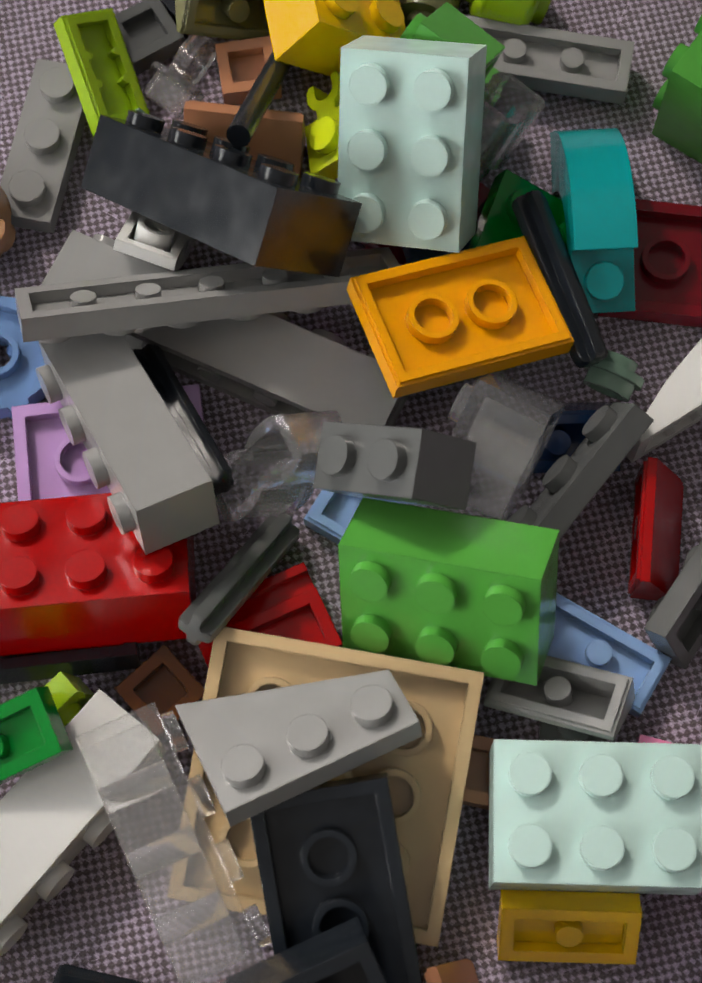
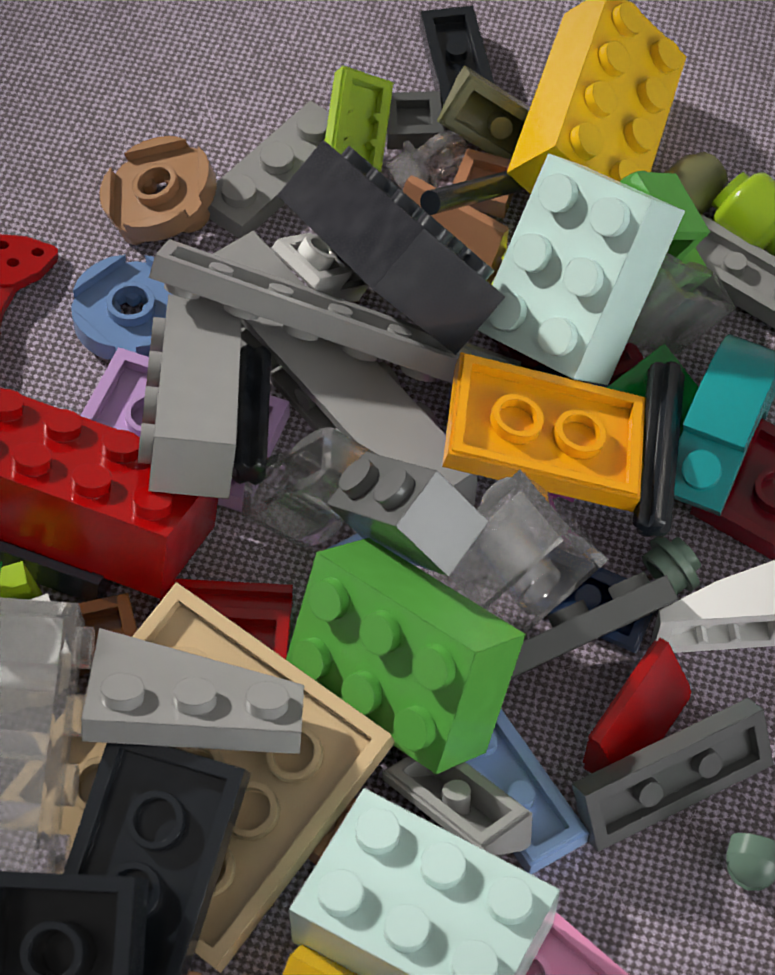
camera: 25 degrees right, 15 degrees down
(238, 579) = (223, 563): dark grey axle -> none

